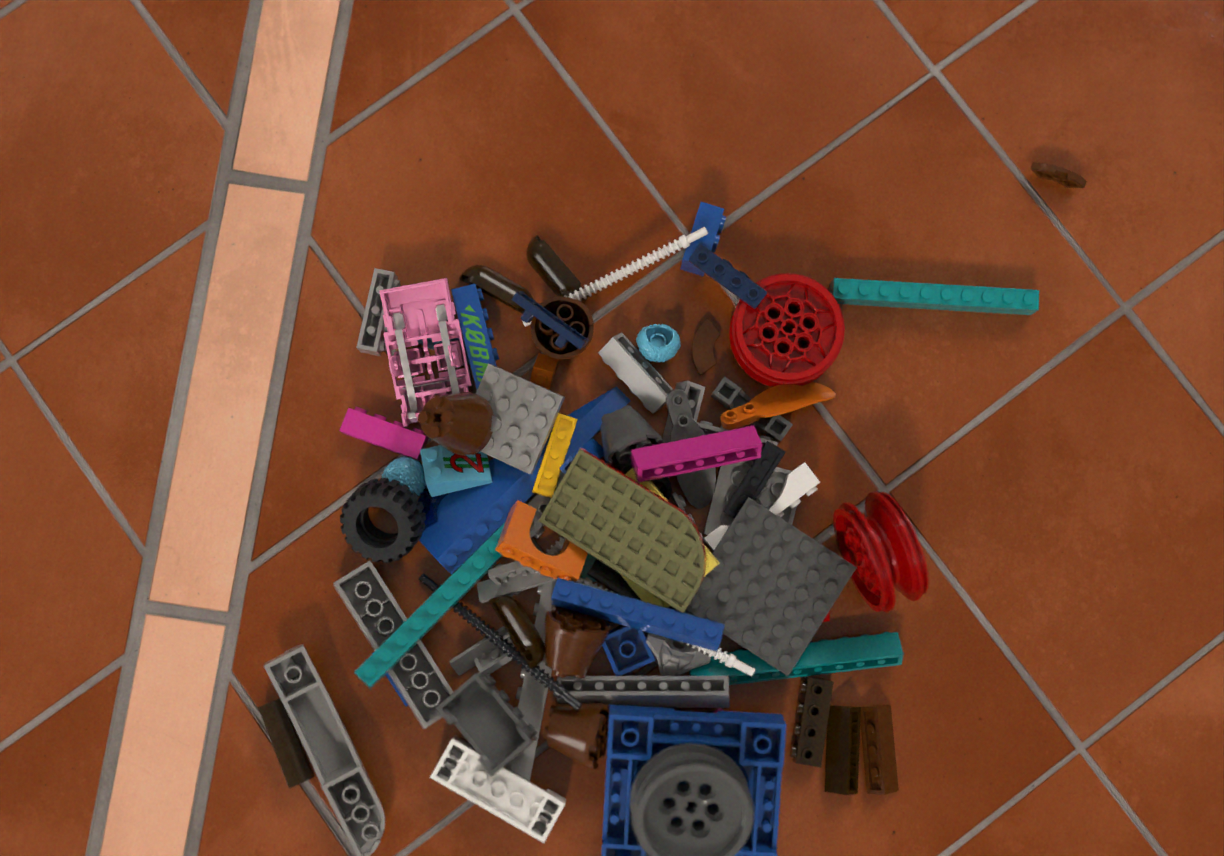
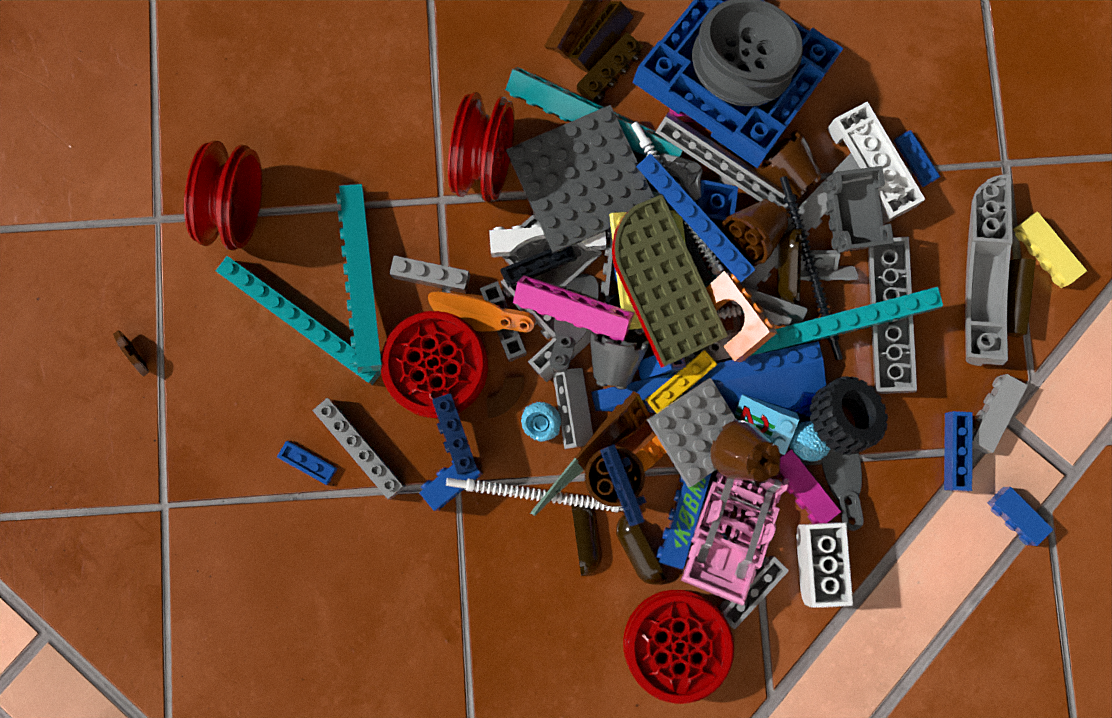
camera: 145 degrees left, 0 degrees up
(172, 531) = (1019, 516): none -> blue brick
(245, 615) = (996, 412): none -> light grey brick
(261, 555) = (958, 451): none -> blue brick
(280, 811) = (1049, 250): none -> light yellow brick
(327, 371) = (824, 564): none -> white brick
(351, 465) = (845, 481): none -> dark grey plant
(415, 260) = (641, 647): none -> red wheel
(461, 825) = (916, 158): none -> blue tile
(587, 378) = (618, 426): none -> reddish brown plate
(802, 219) = (359, 448): none -> light grey brick
(839, 181) = (307, 462): none -> blue tile
(846, 412) = (430, 274): none -> light grey brick
(908, 367) = (360, 278): none -> teal brick
(1080, 353) = (223, 195): none -> red wheel

